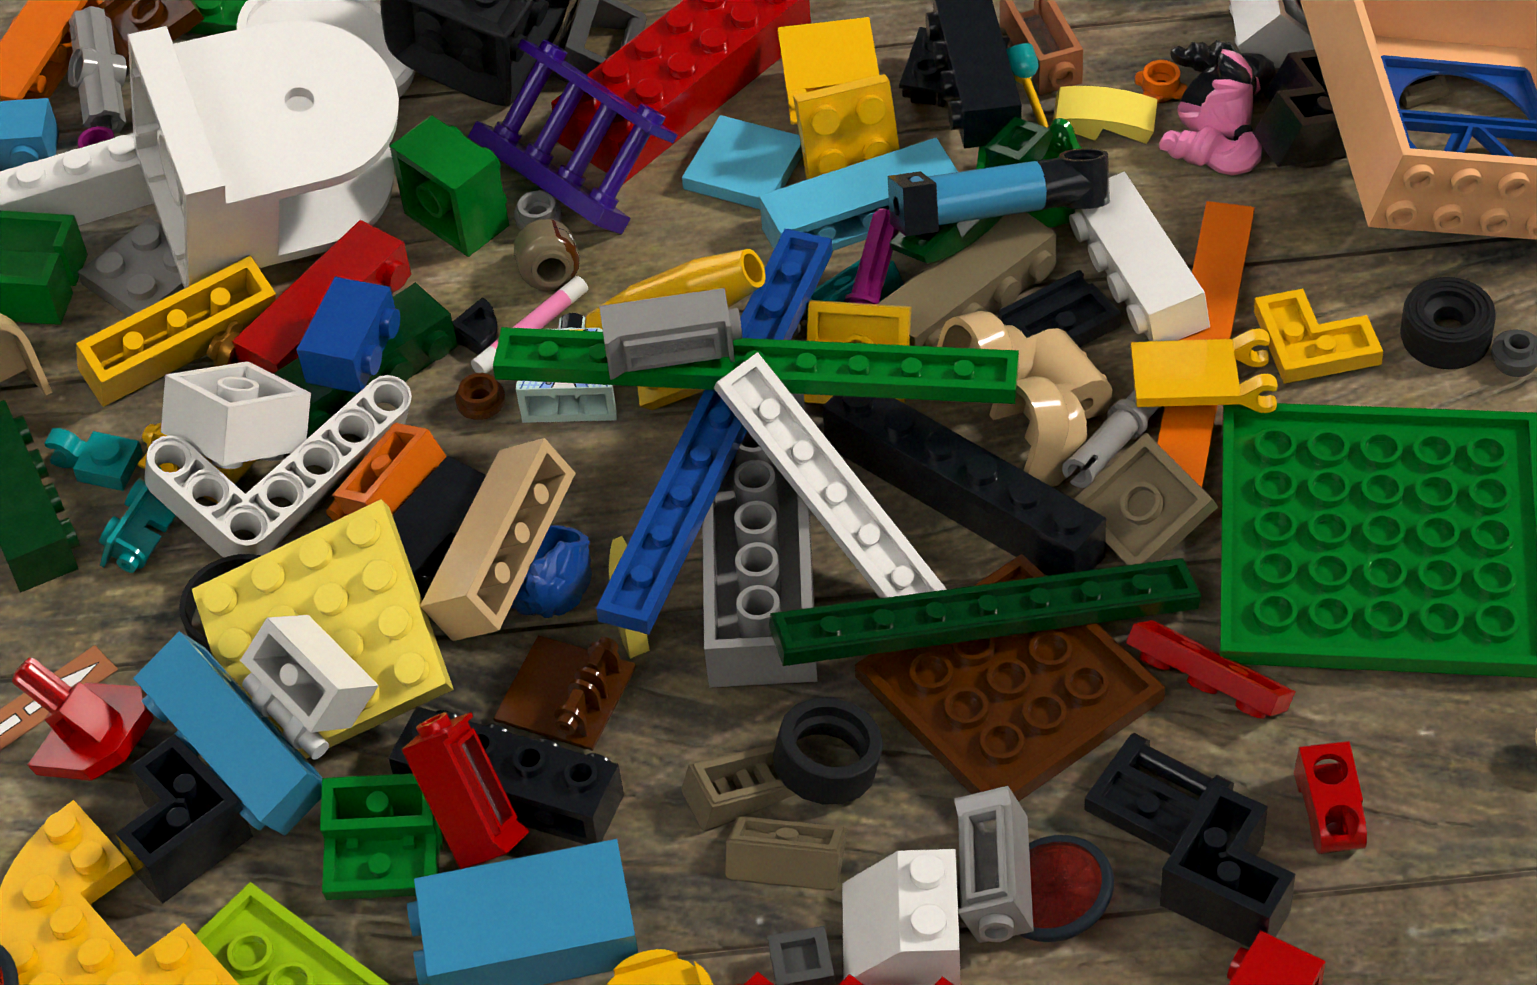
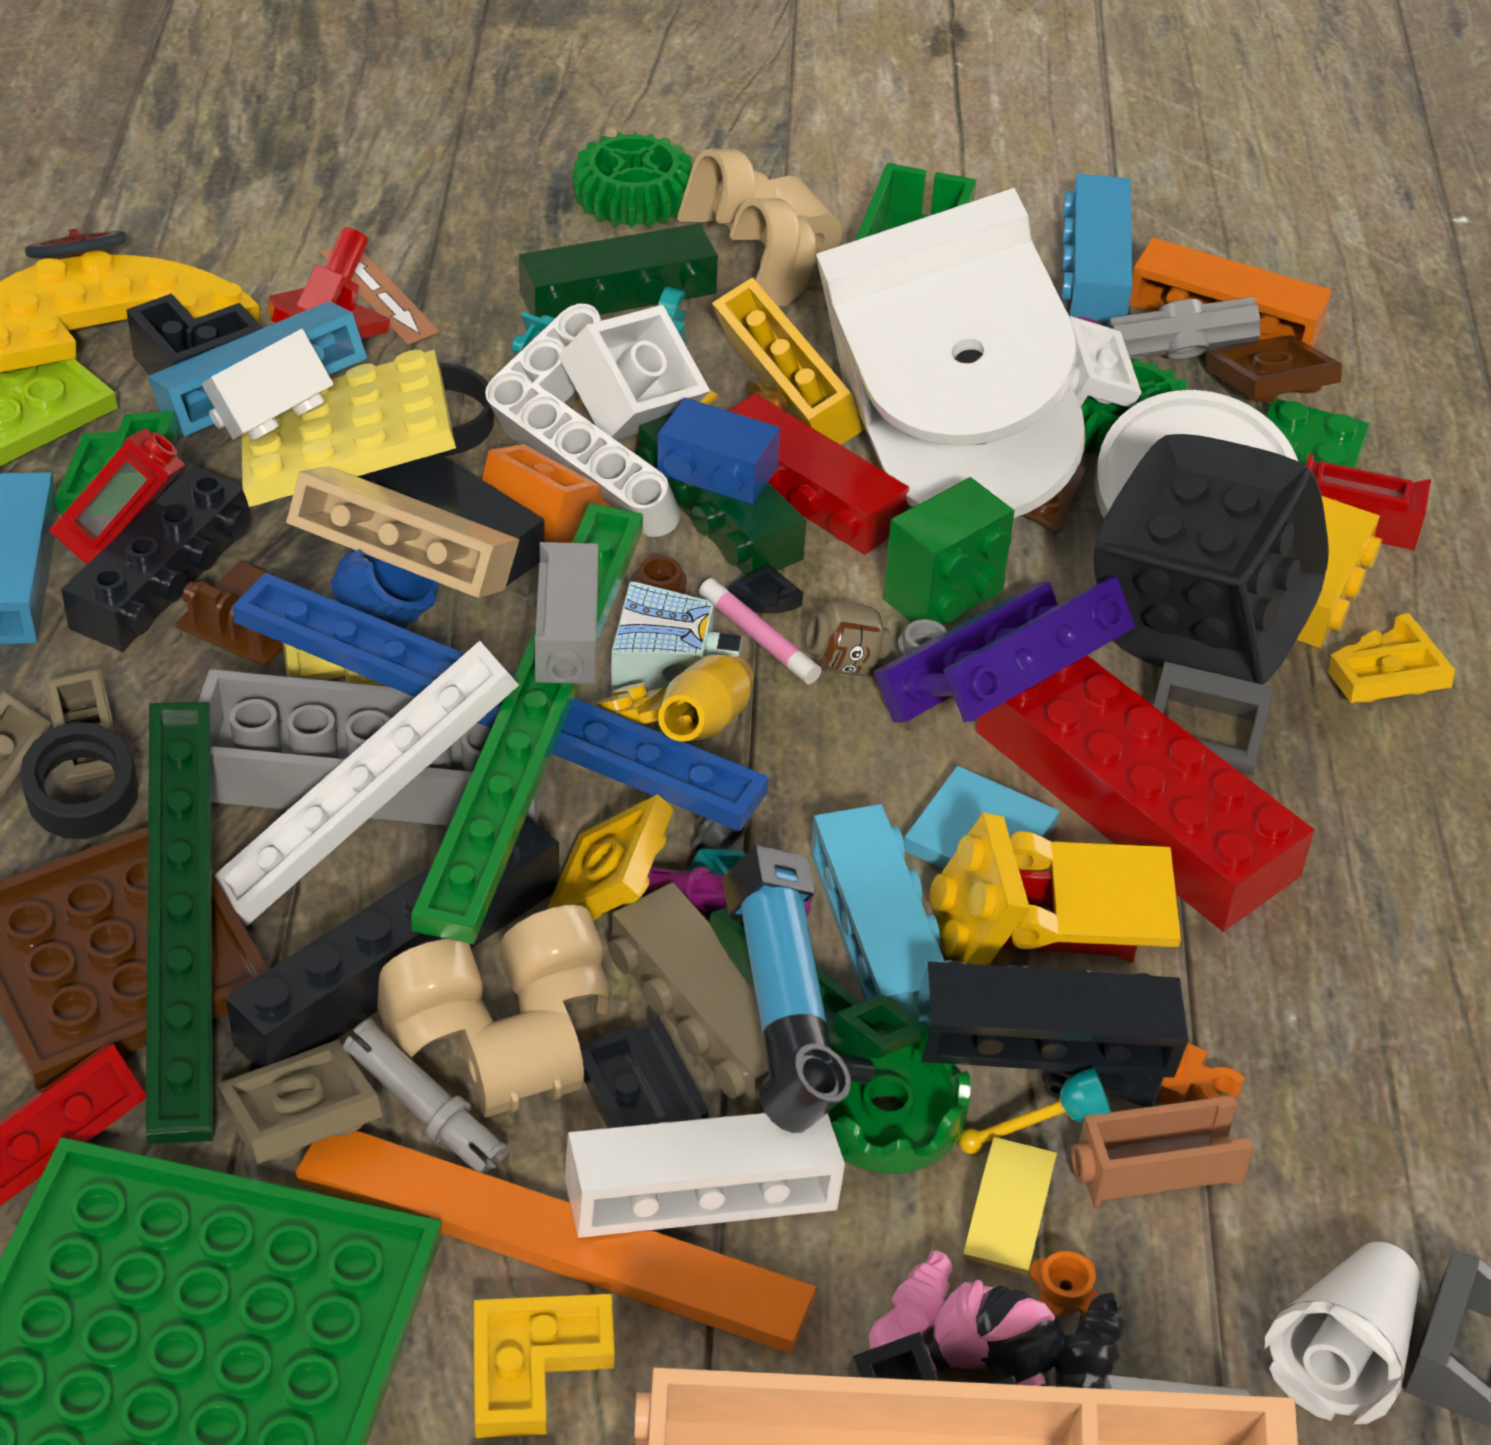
camera: 90 degrees right, 5 degrees down
(1202, 372) = (492, 1188): yellow flag -> none

